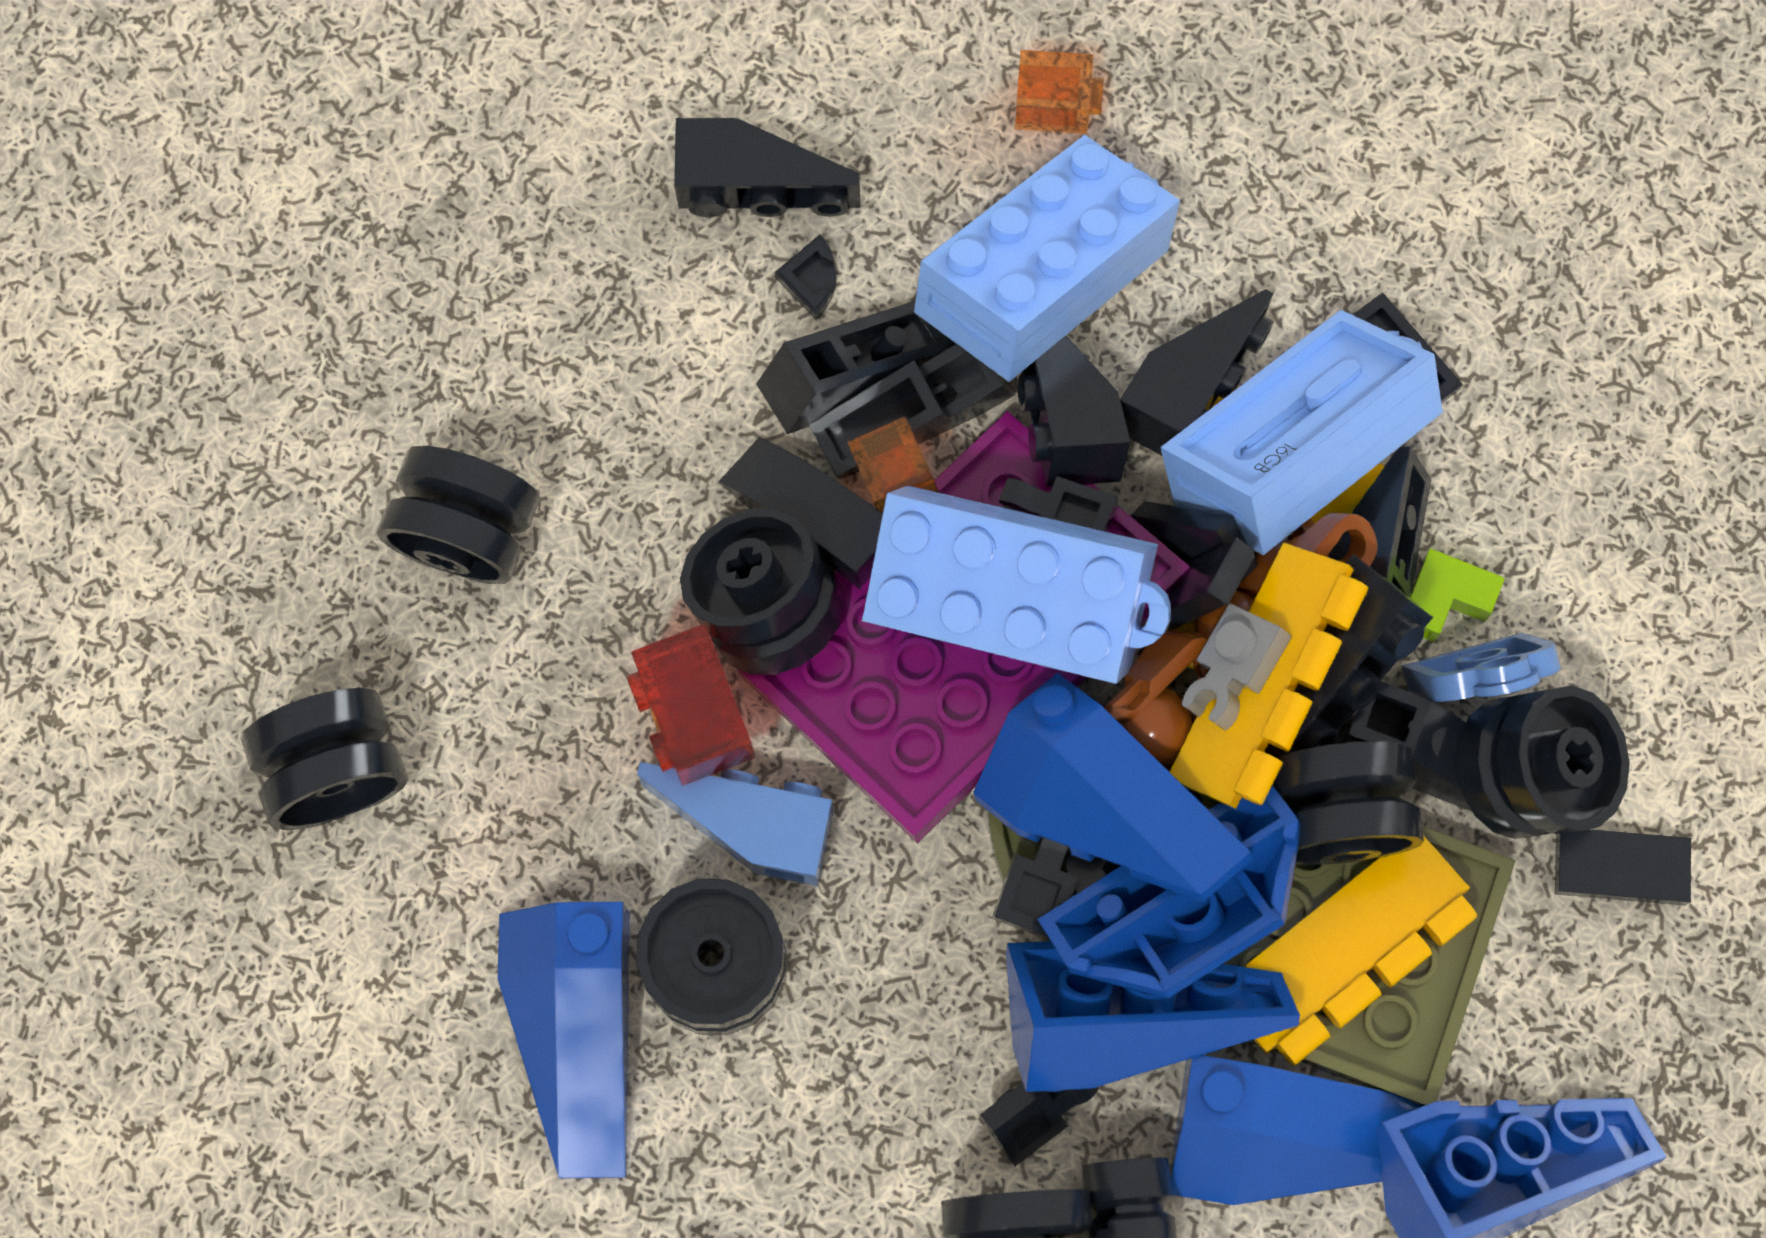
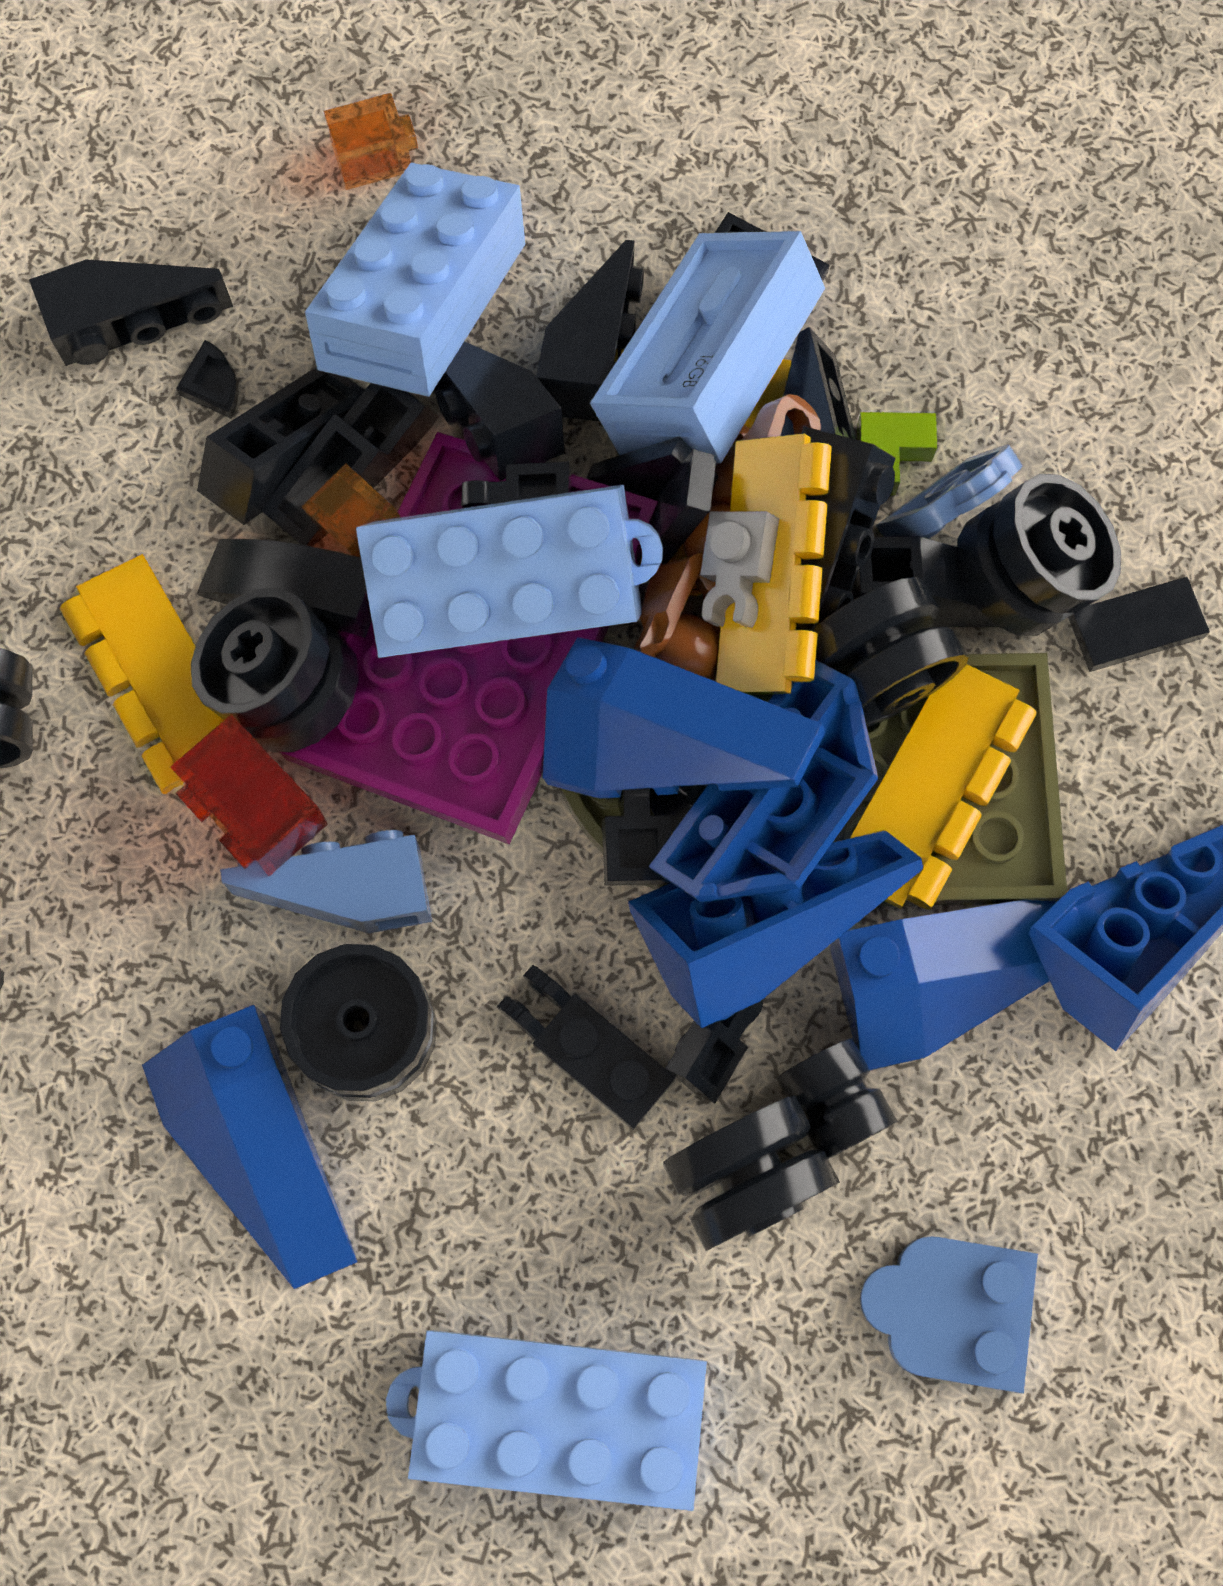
camera: 25 degrees left, 0 degrees up
(653, 525) = (144, 650): none -> yellow windscreen
(919, 1070) = (592, 1051): none -> black hinge

